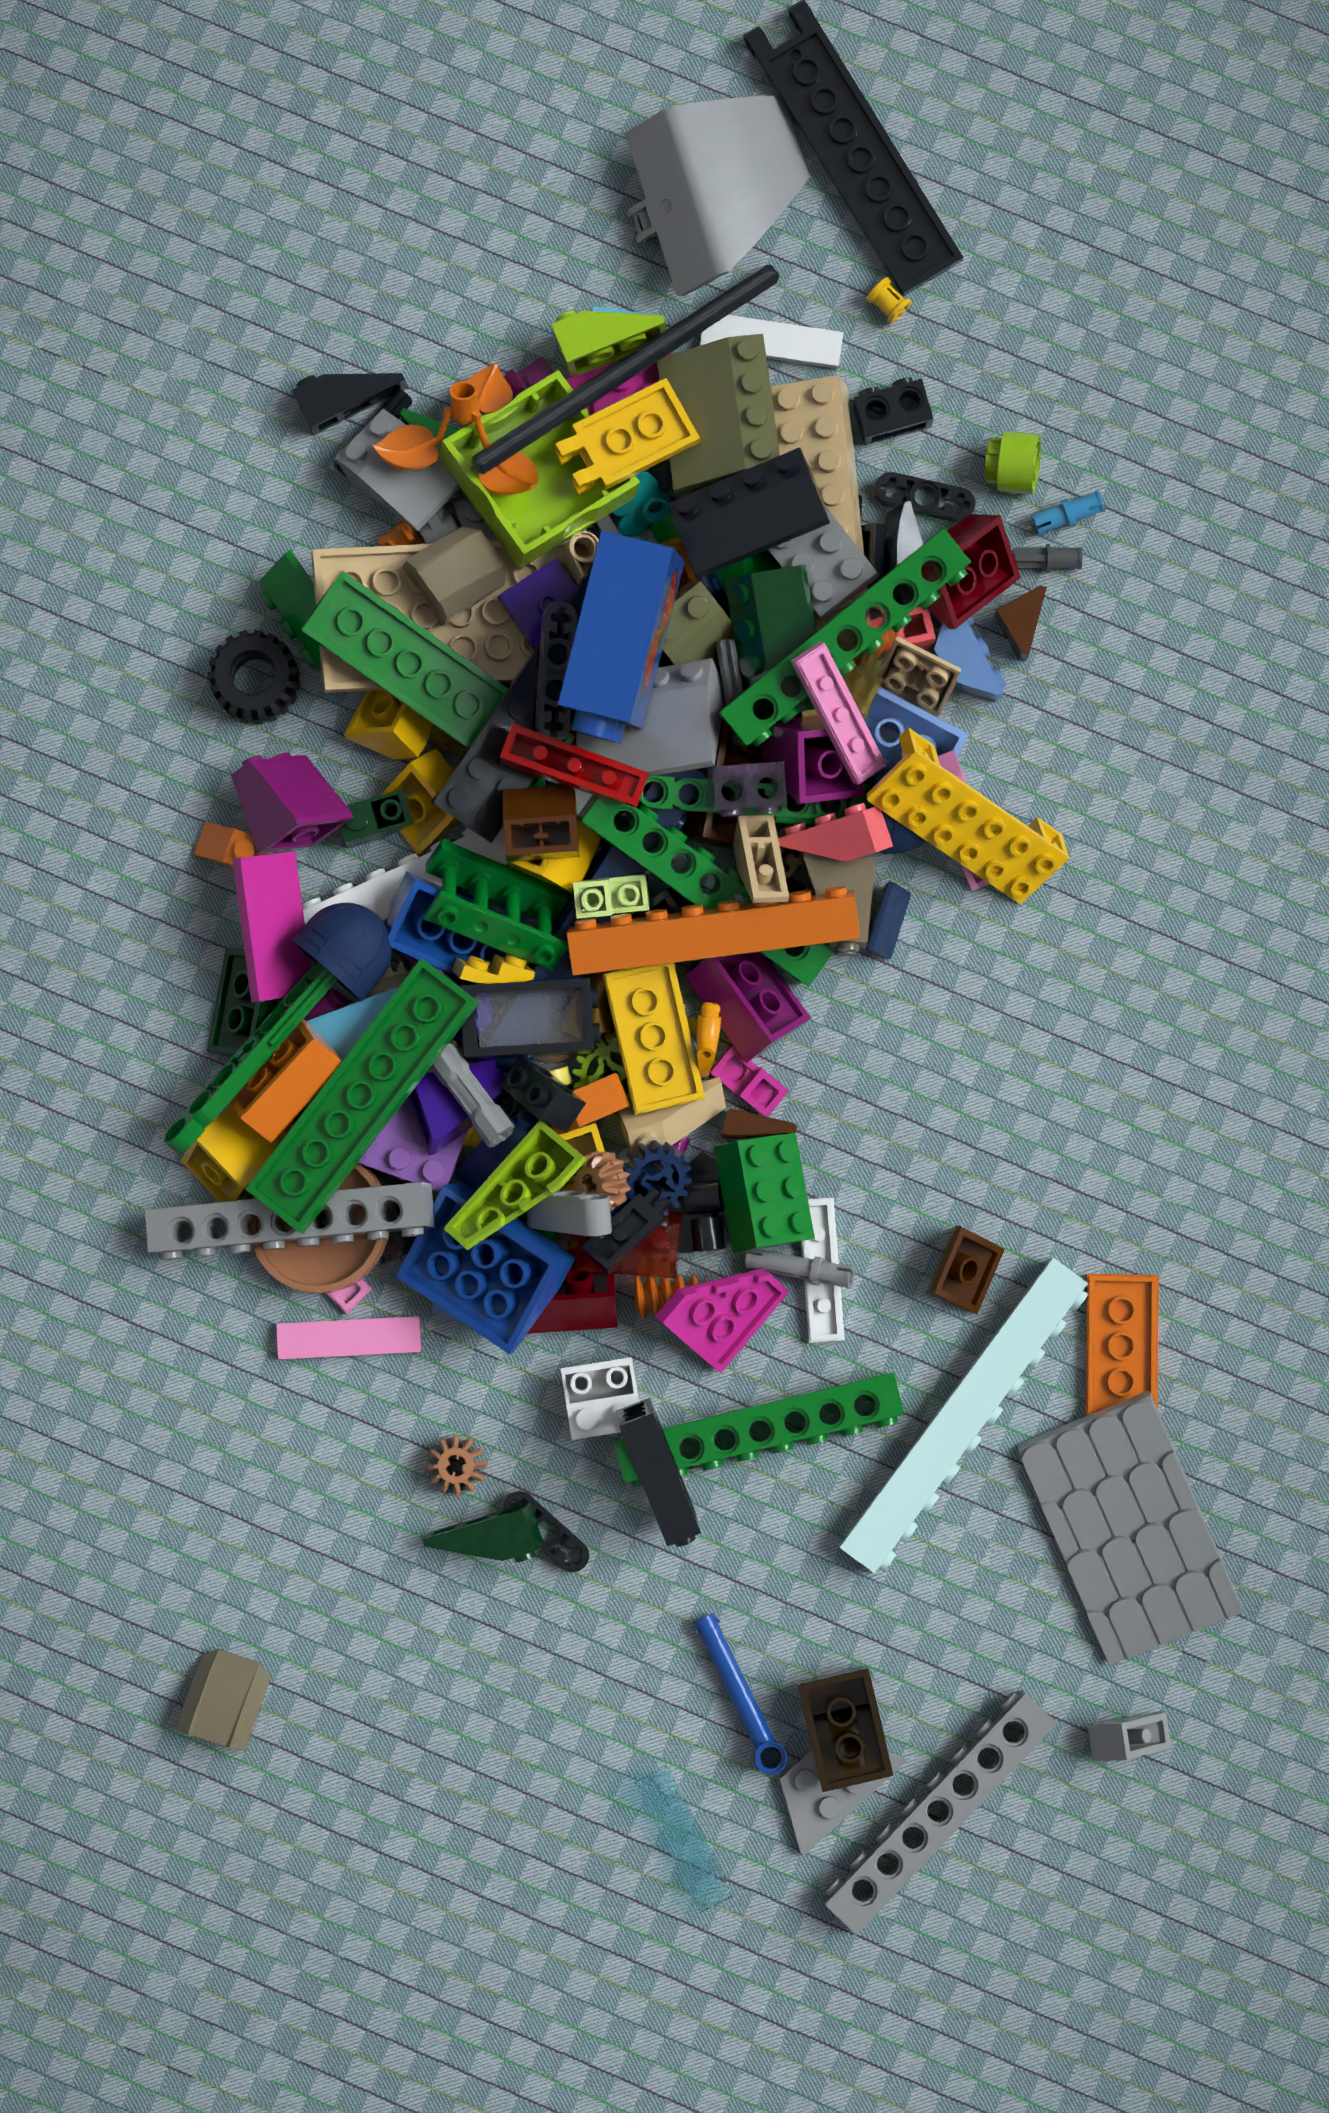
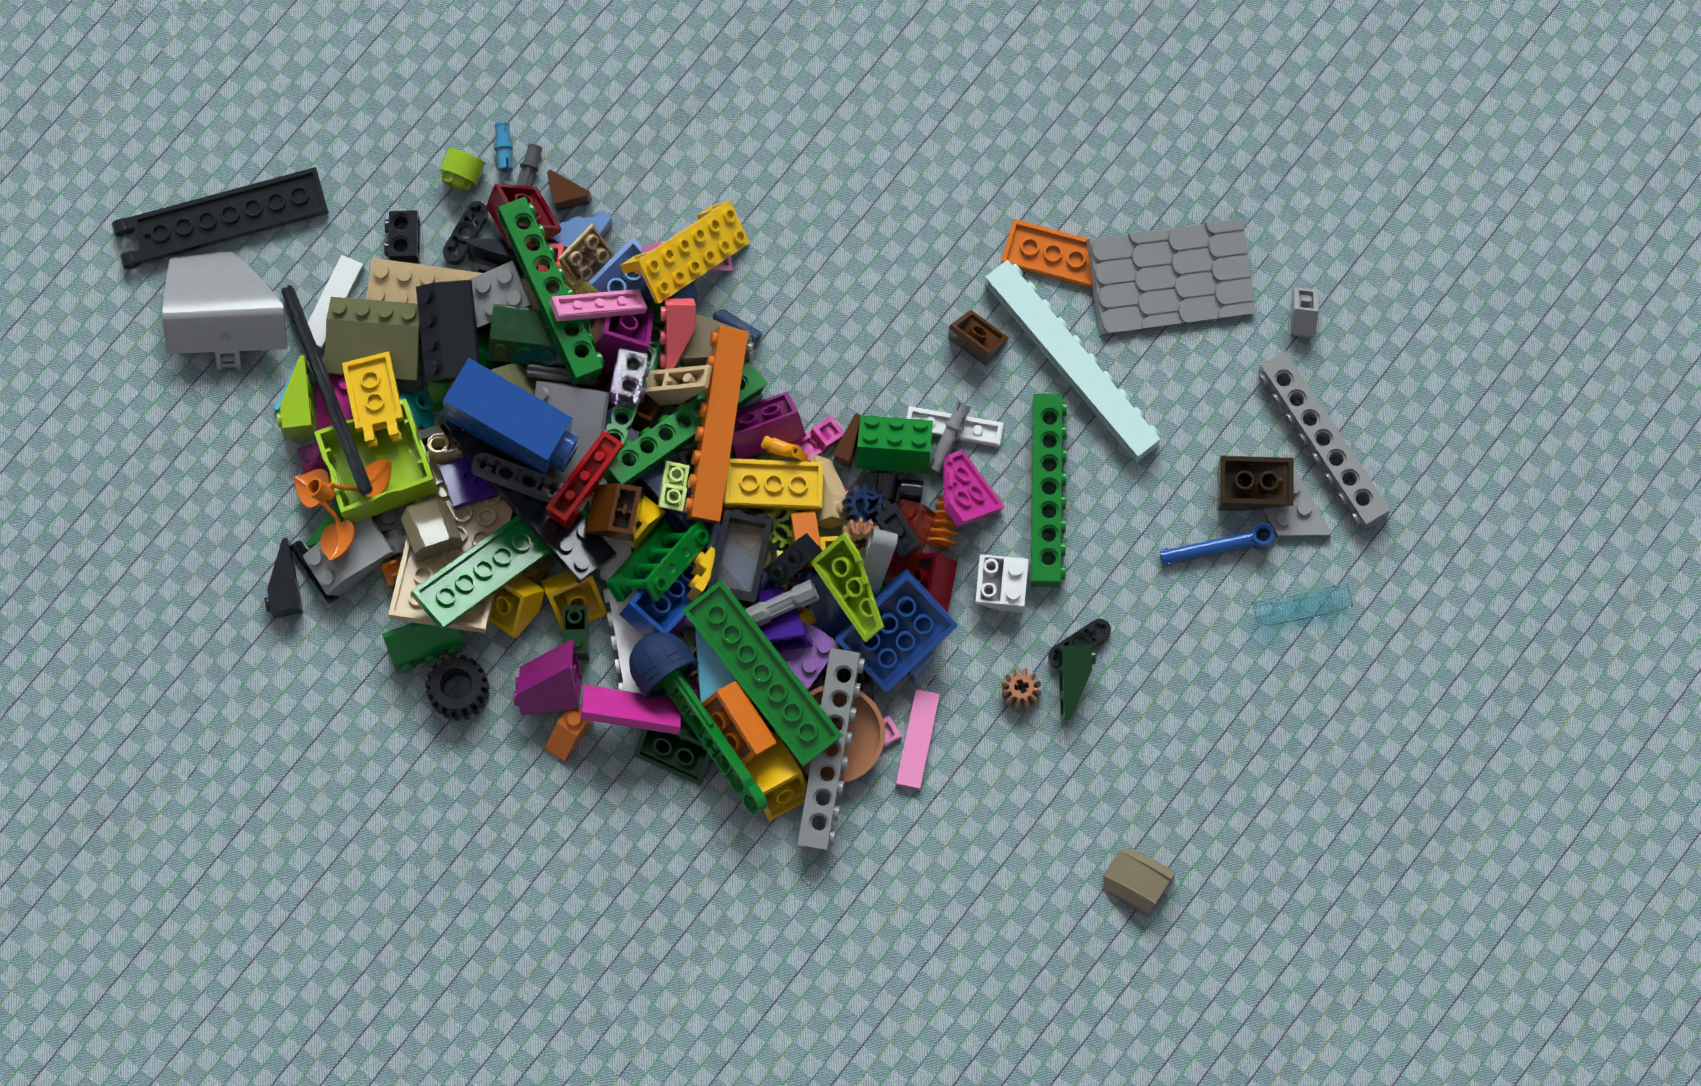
camera: 75 degrees left, 10 degrees down
(658, 1473) = (1060, 550): black window -> none
(888, 300) = (329, 221): yellow bush -> none

